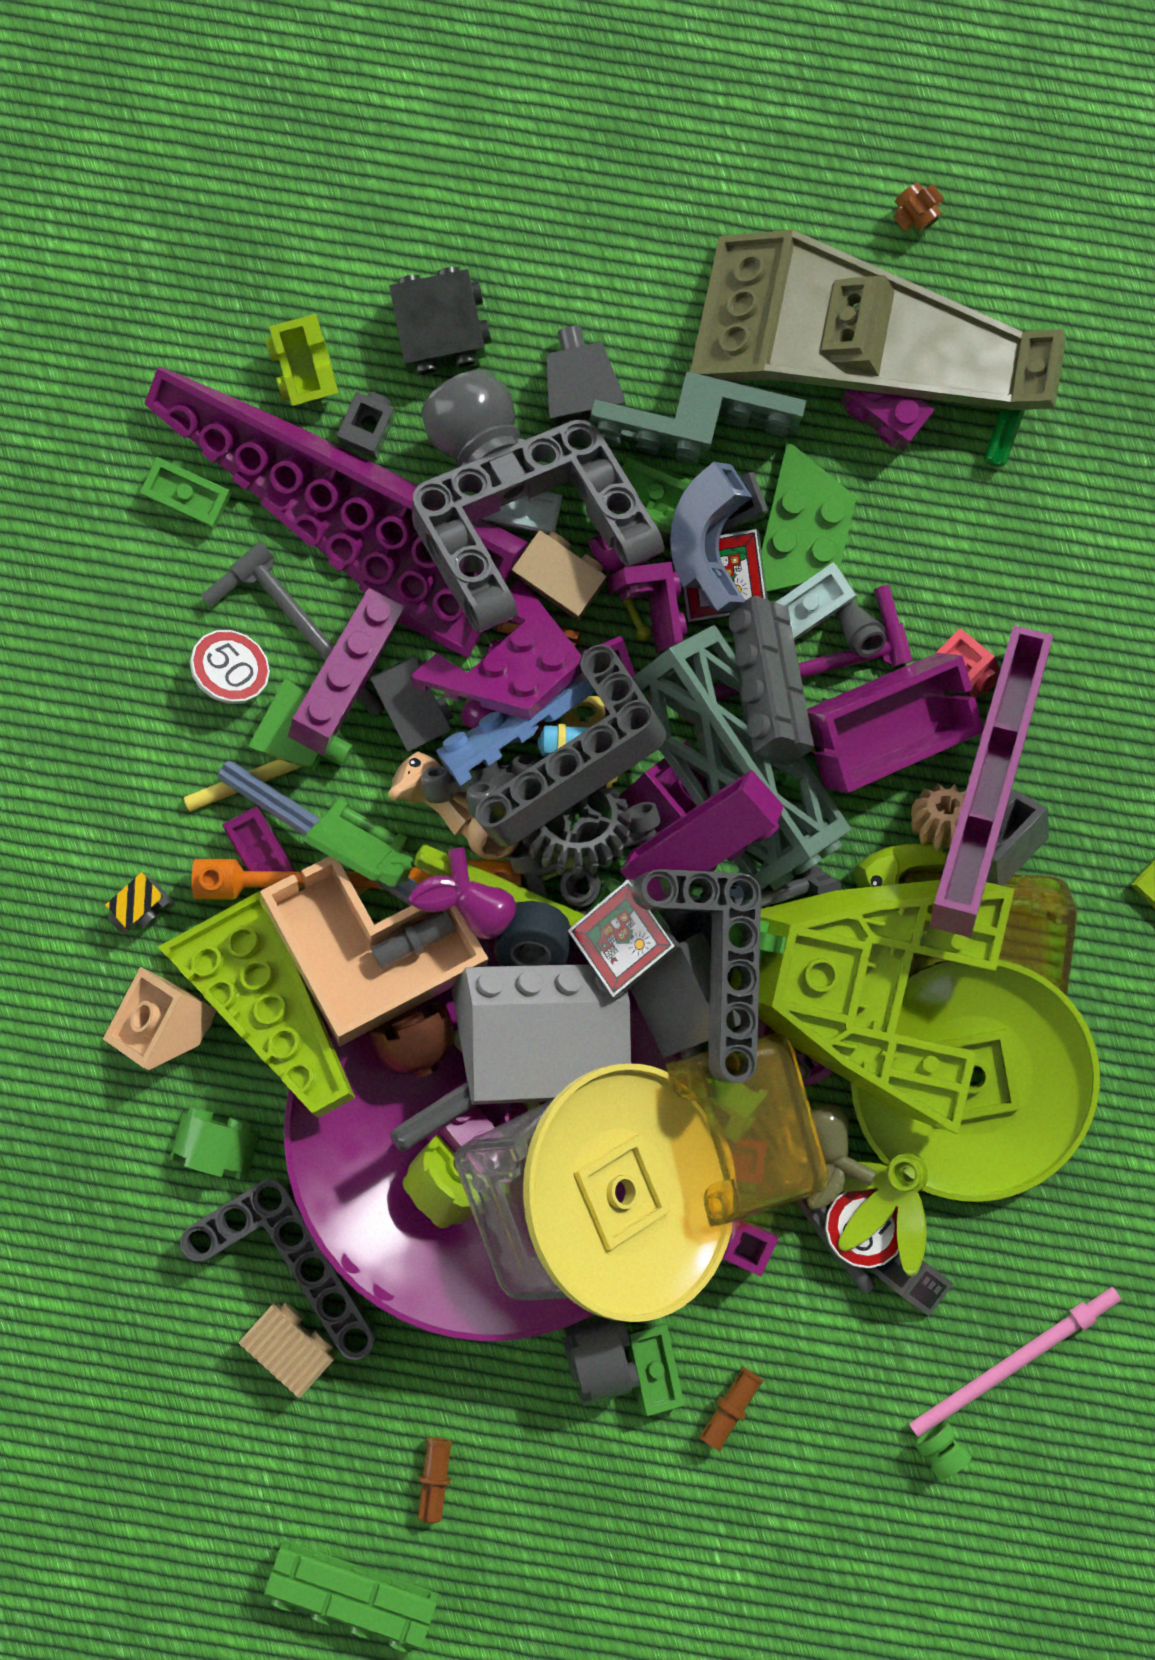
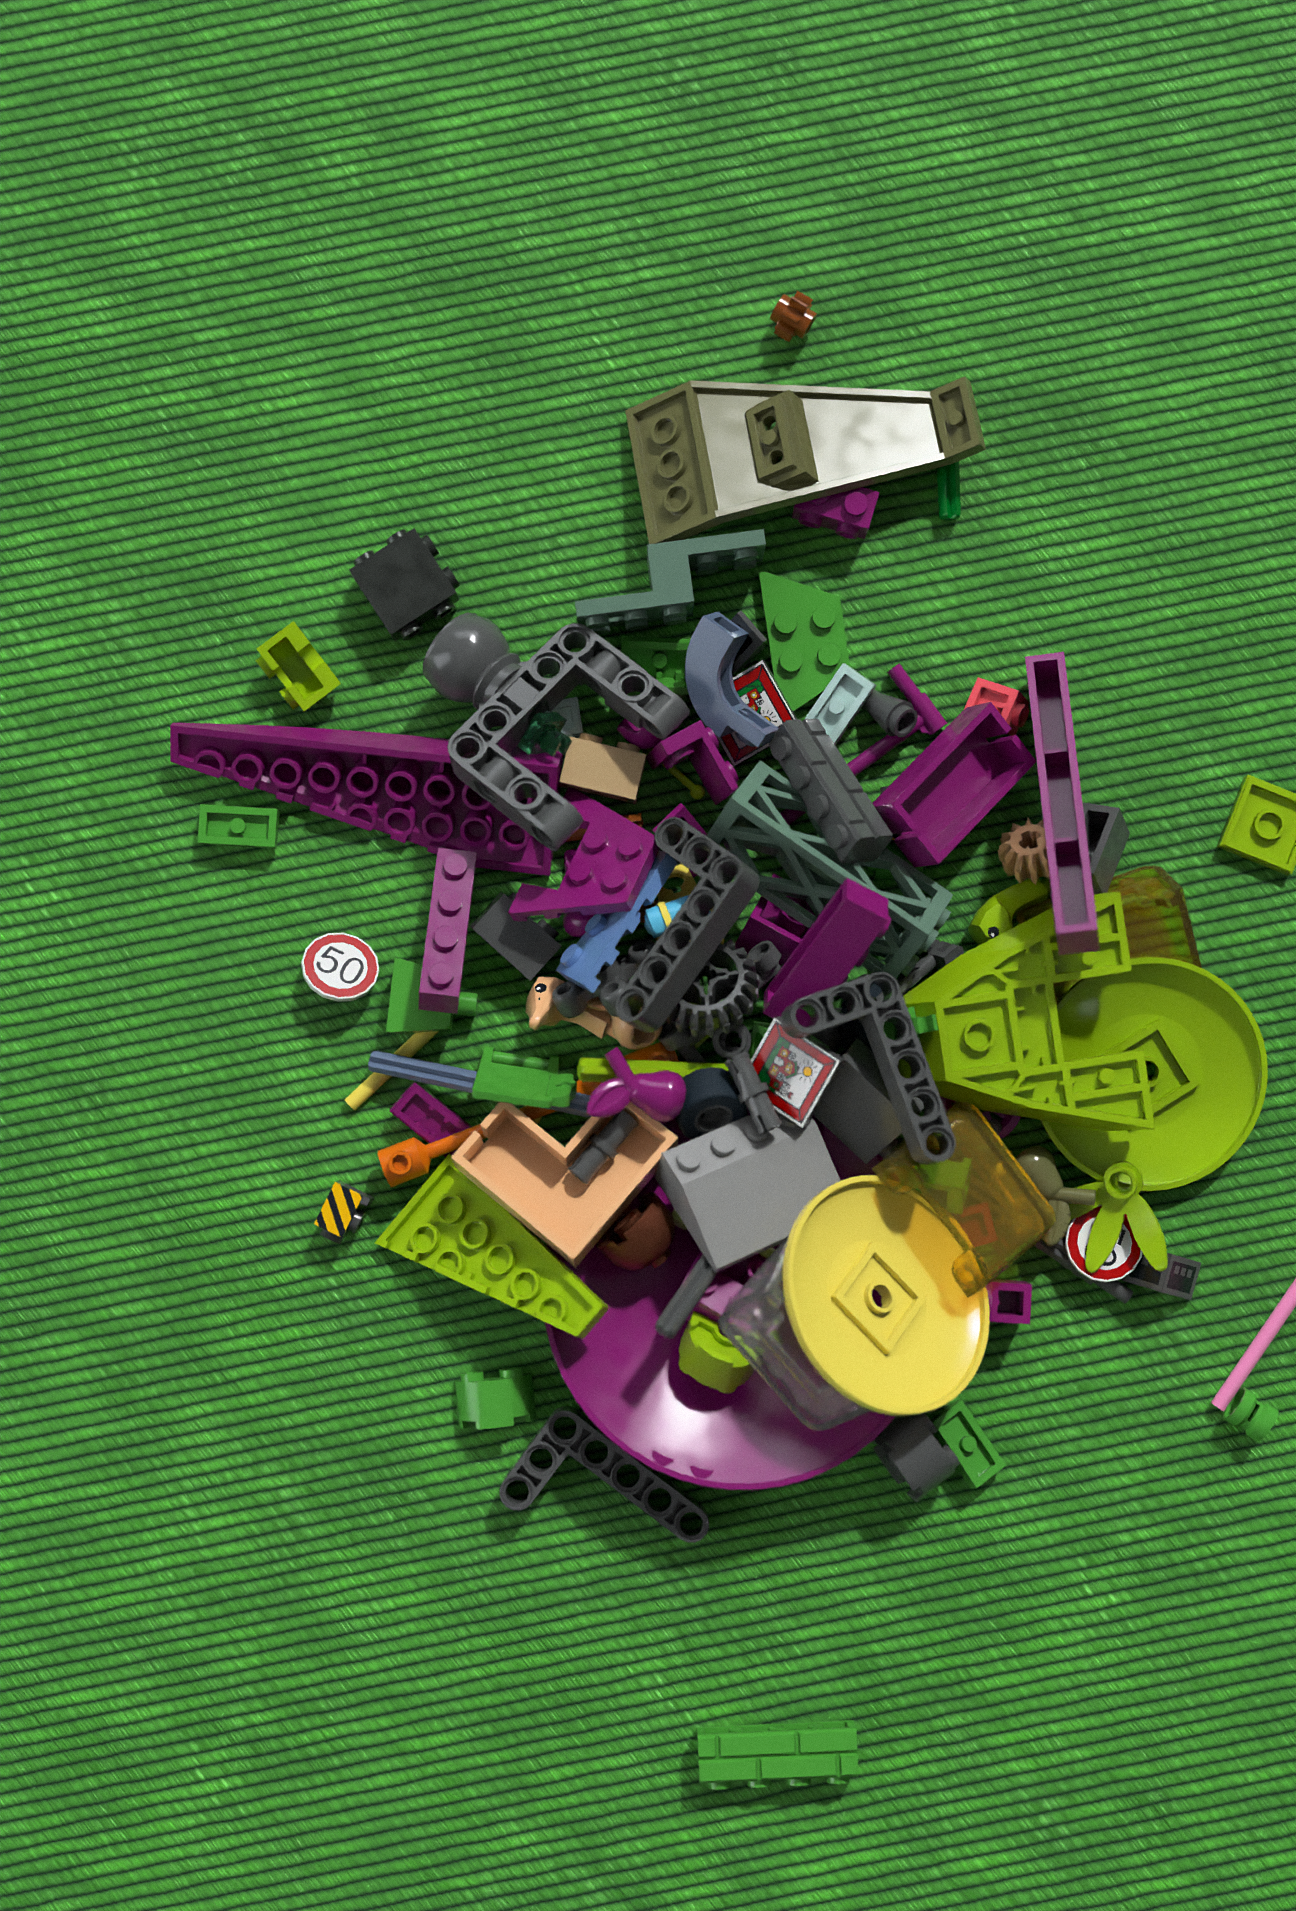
camera: 20 degrees left, 0 degrees up
(158, 1021) = (401, 1309): light nougat slope -> none
(255, 567) = (327, 868): dark grey bar -> none
(288, 1348) = (633, 1554): tan brick -> none
(361, 409) = (369, 687): dark grey brick -> none
(434, 1479) = (809, 1620): dark orange axle -> none
(515, 518) = (545, 735): none -> clear green tile
(578, 378) = (551, 587): dark grey torso -> none
(578, 944) = (753, 1093): none -> dark grey pin
(731, 1408) = (1048, 1452): dark orange pin -> none

